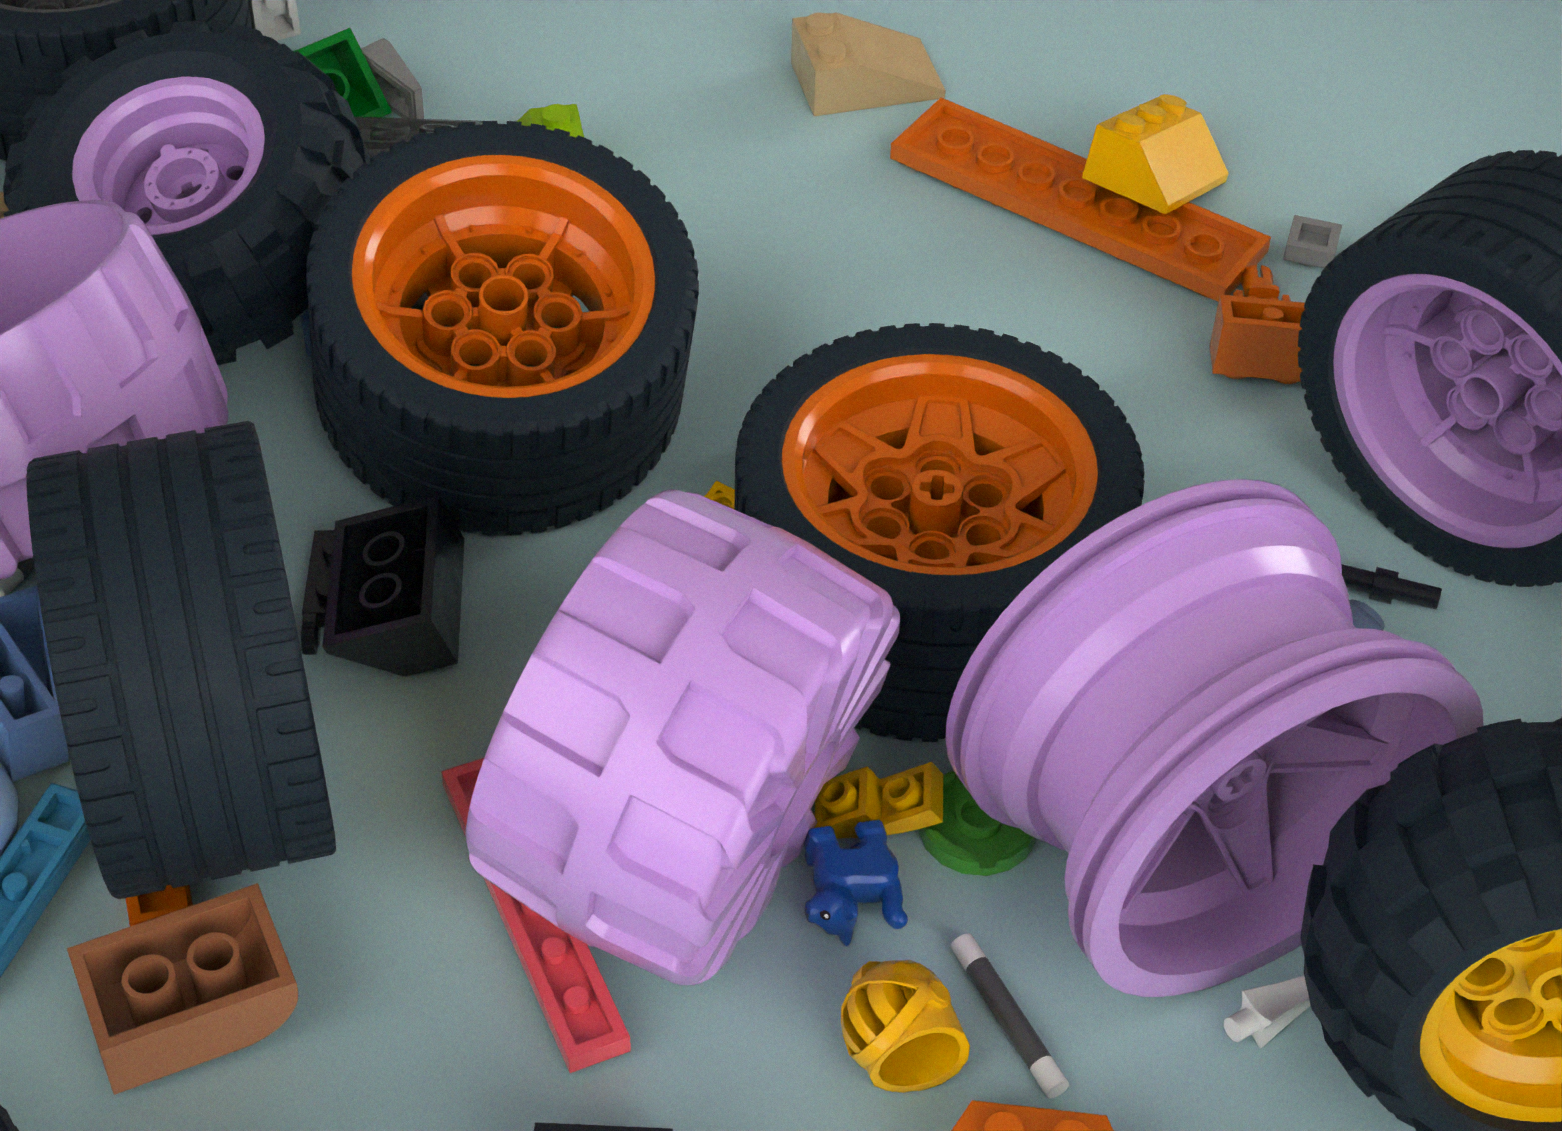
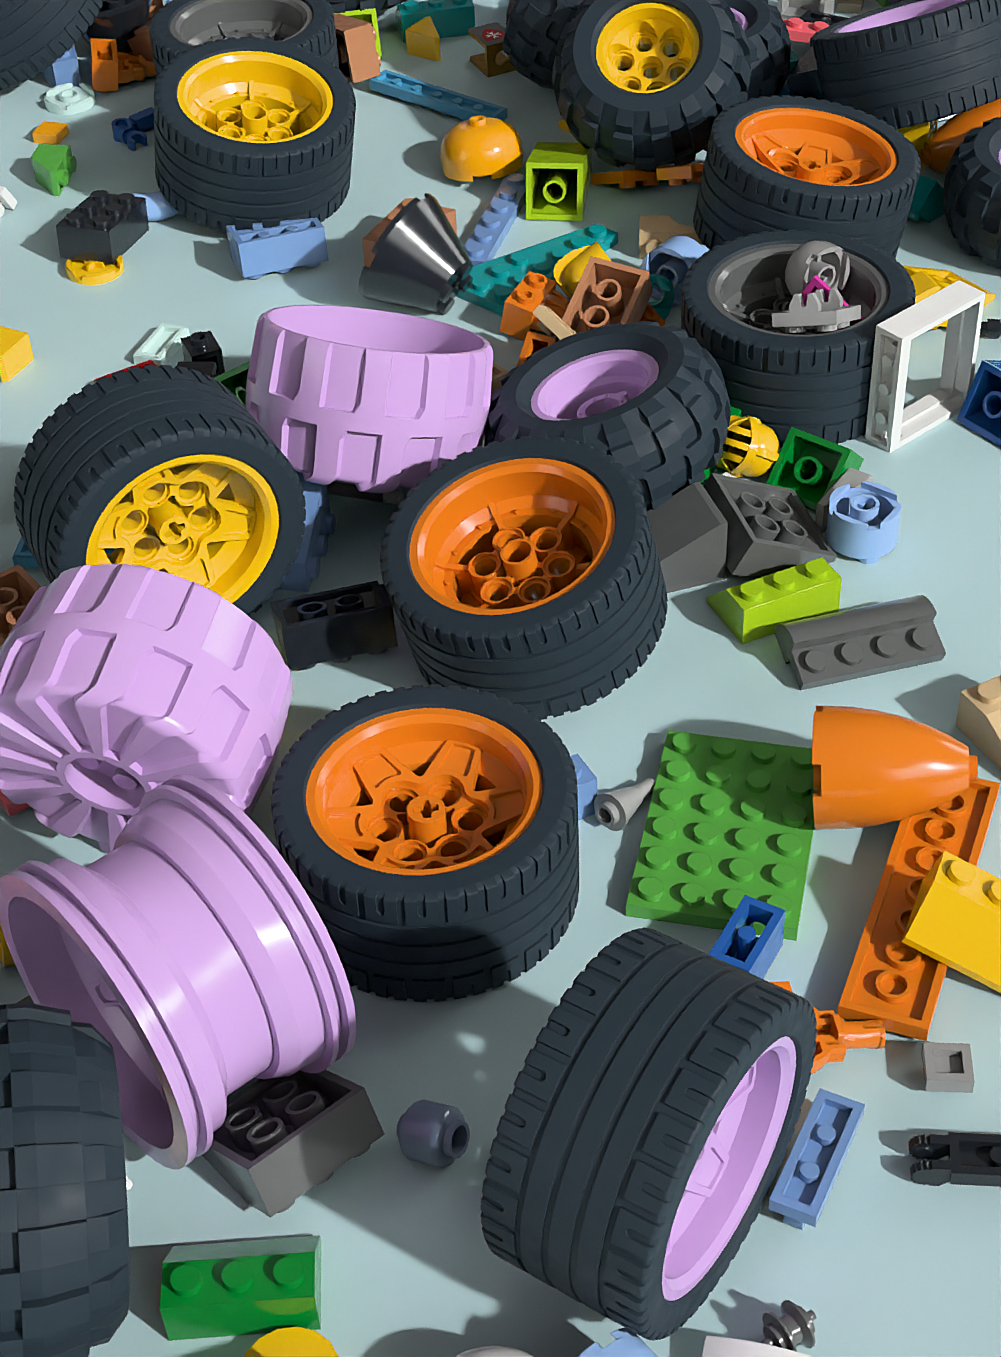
camera: 80 degrees right, 5 degrees down
(459, 70) = (863, 521): none -> light blue brick
(663, 127) = (861, 641): none -> dark grey brick
(875, 276) = (723, 827): none -> bright green plate
(927, 160) = (882, 767): none -> orange cylinder
(1140, 329) = (739, 942): none -> blue brick

